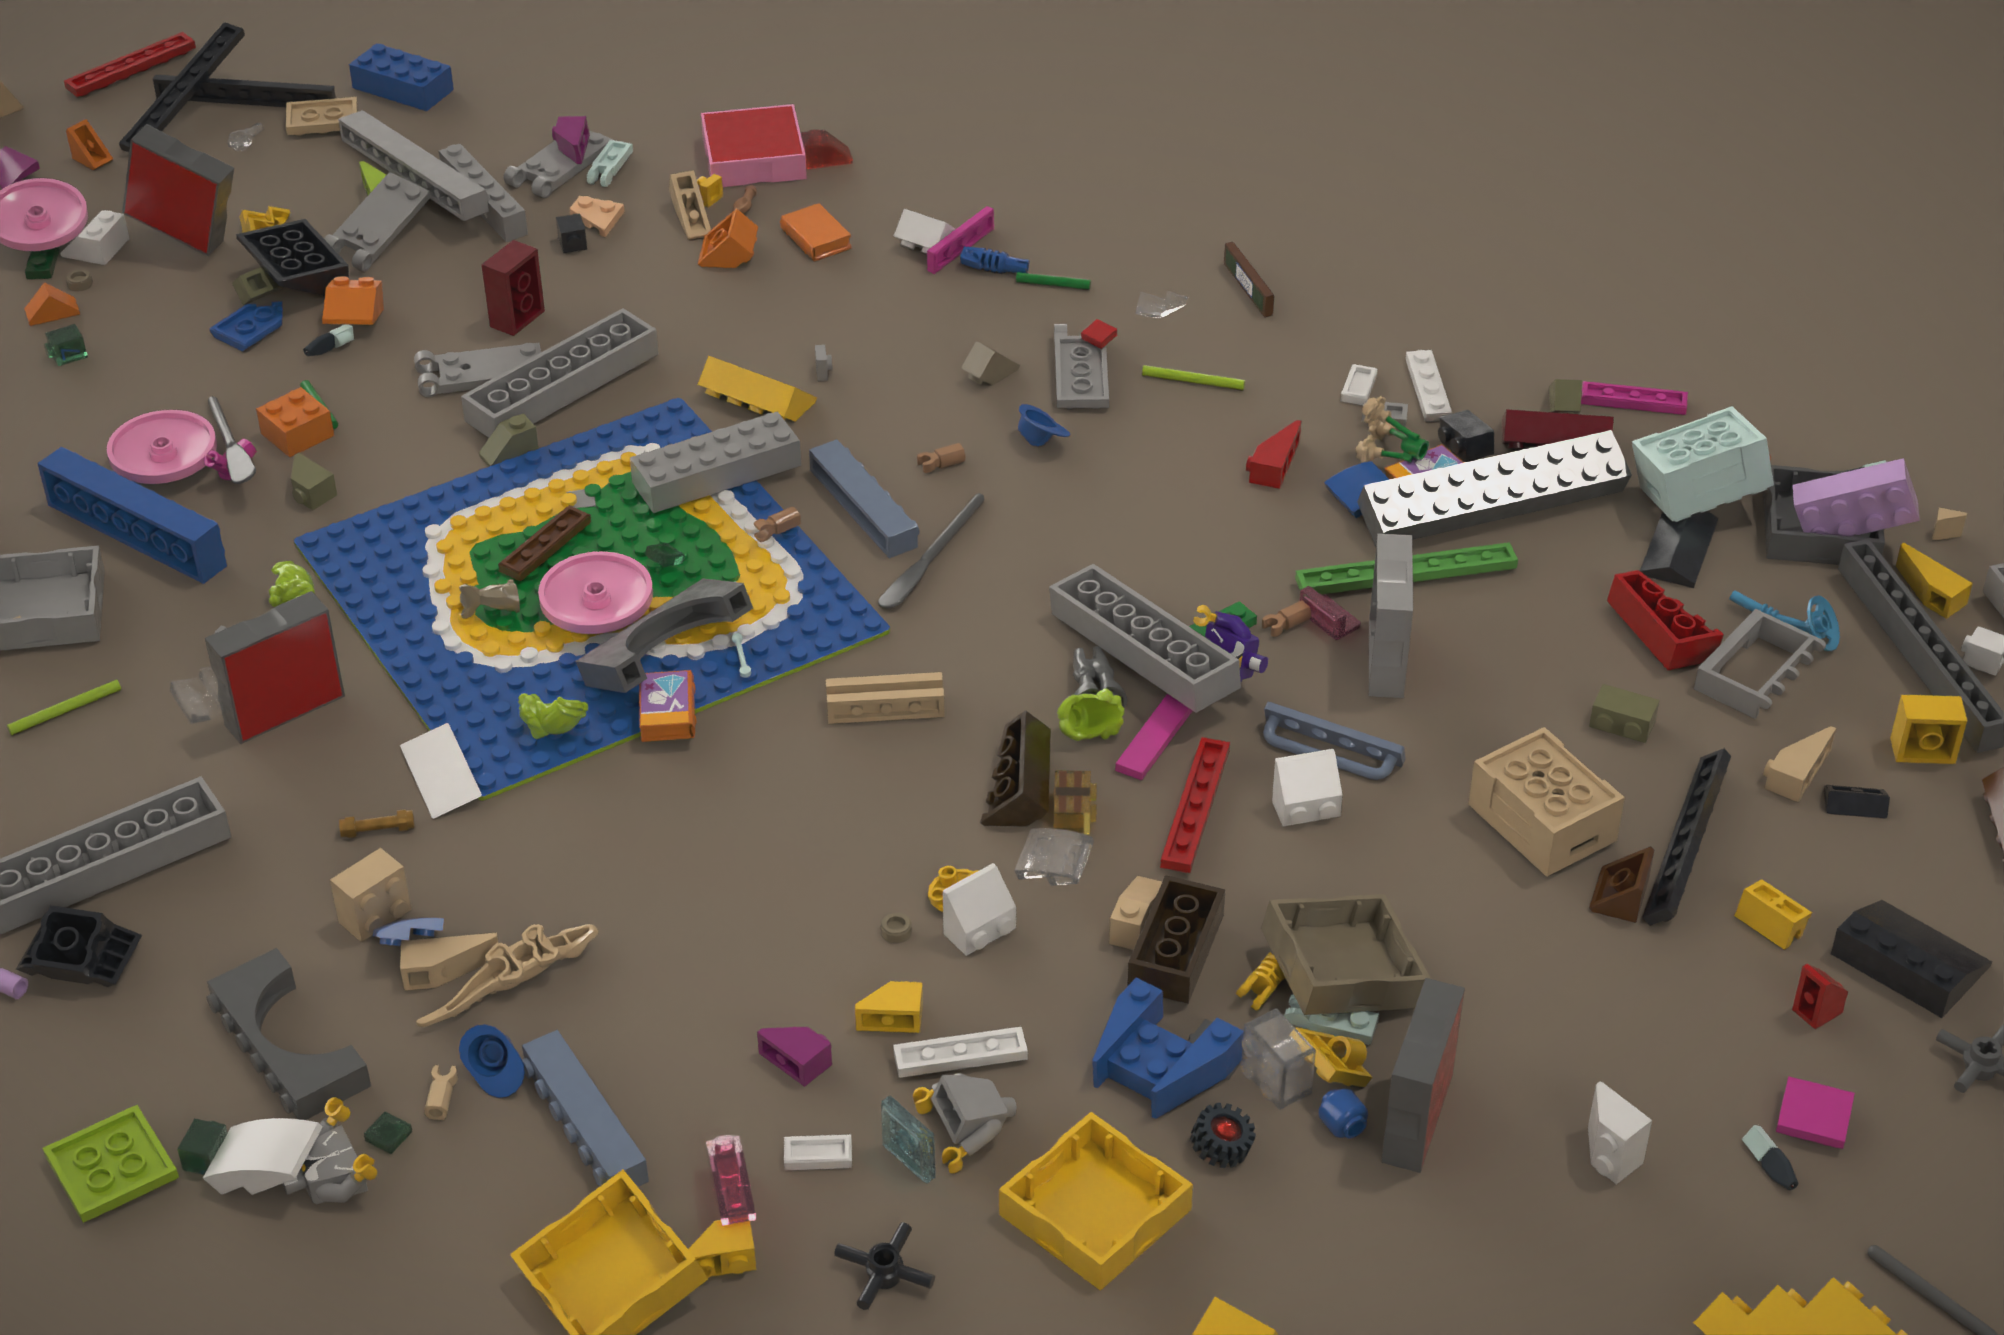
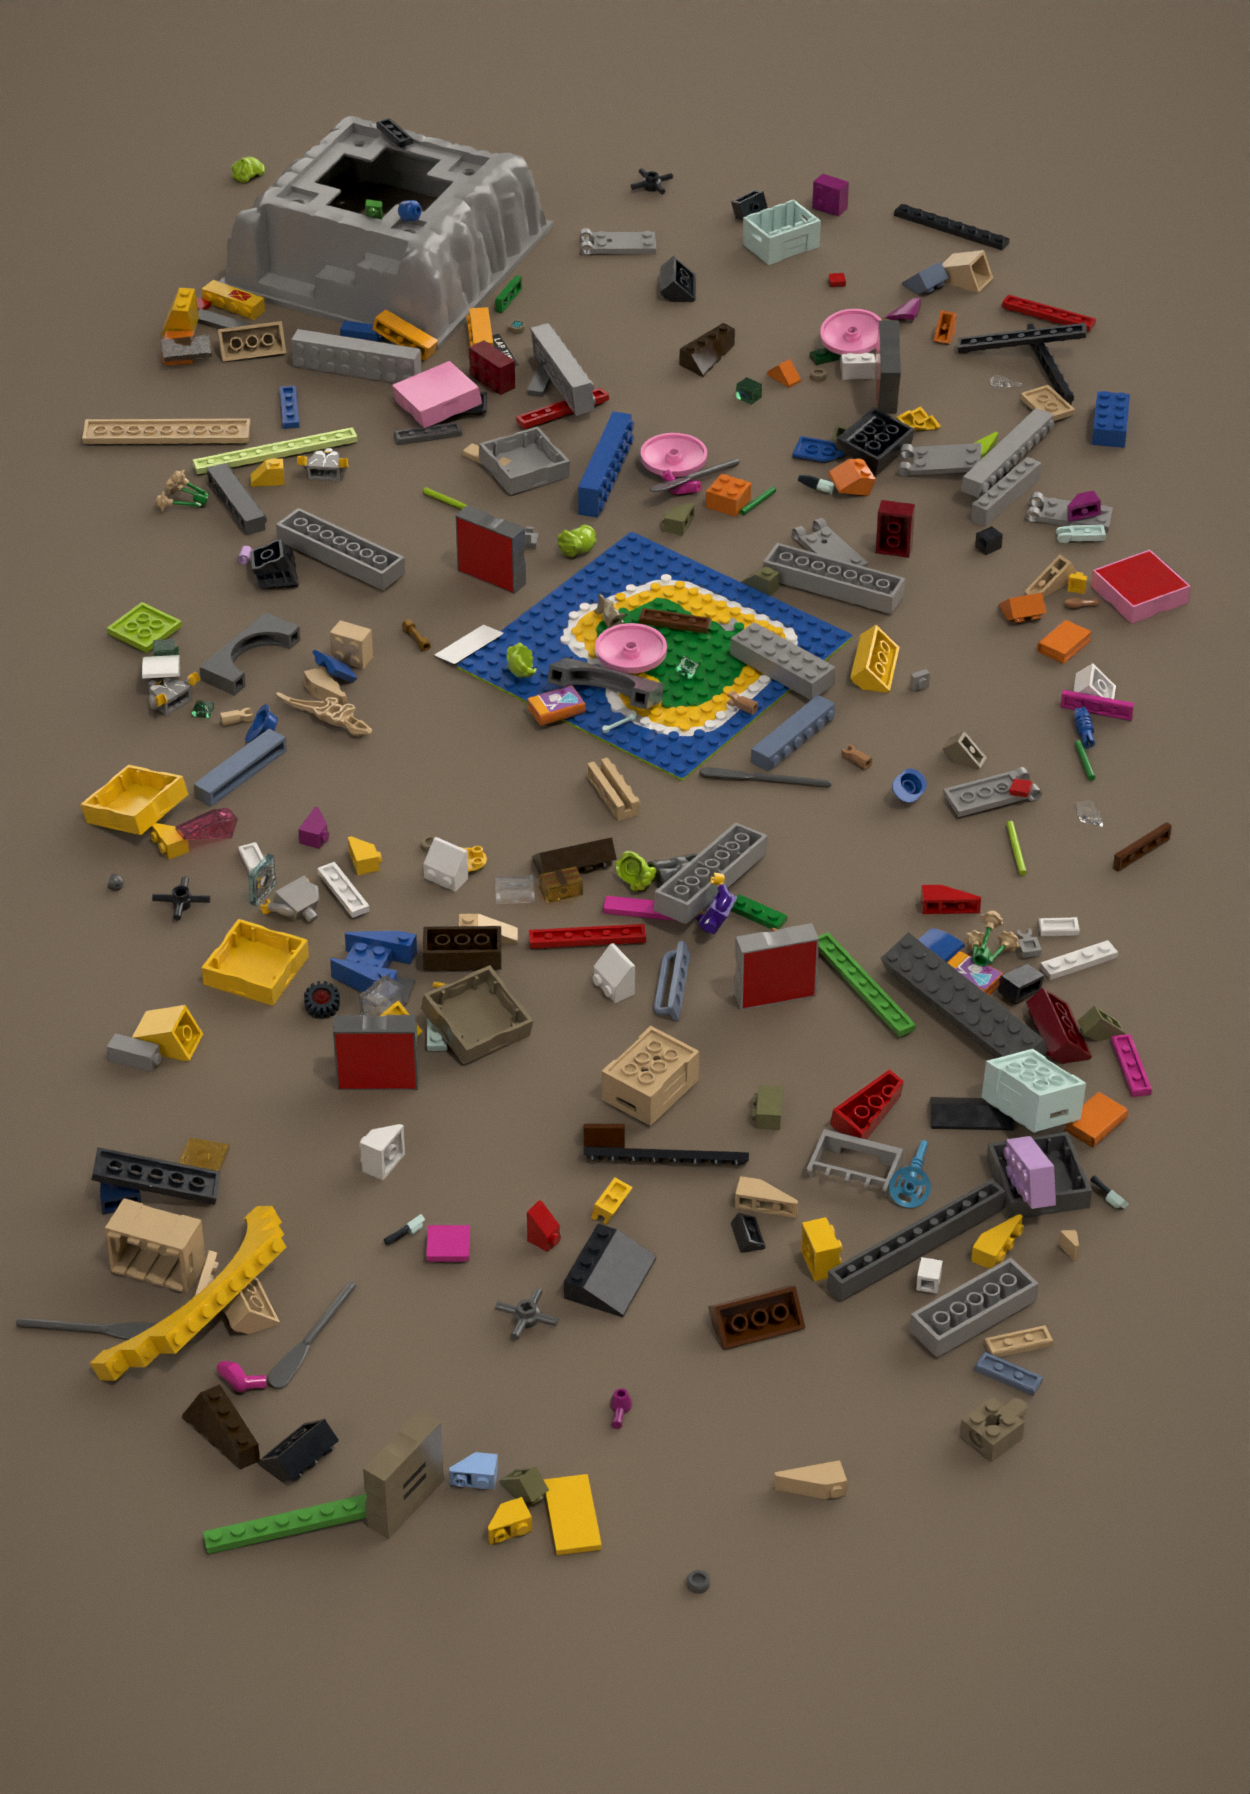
camera: 70 degrees right, 0 degrees up
(598, 213) = (1022, 546): light nougat wing -> none
(824, 149) = (1160, 618): clear red slope -> none

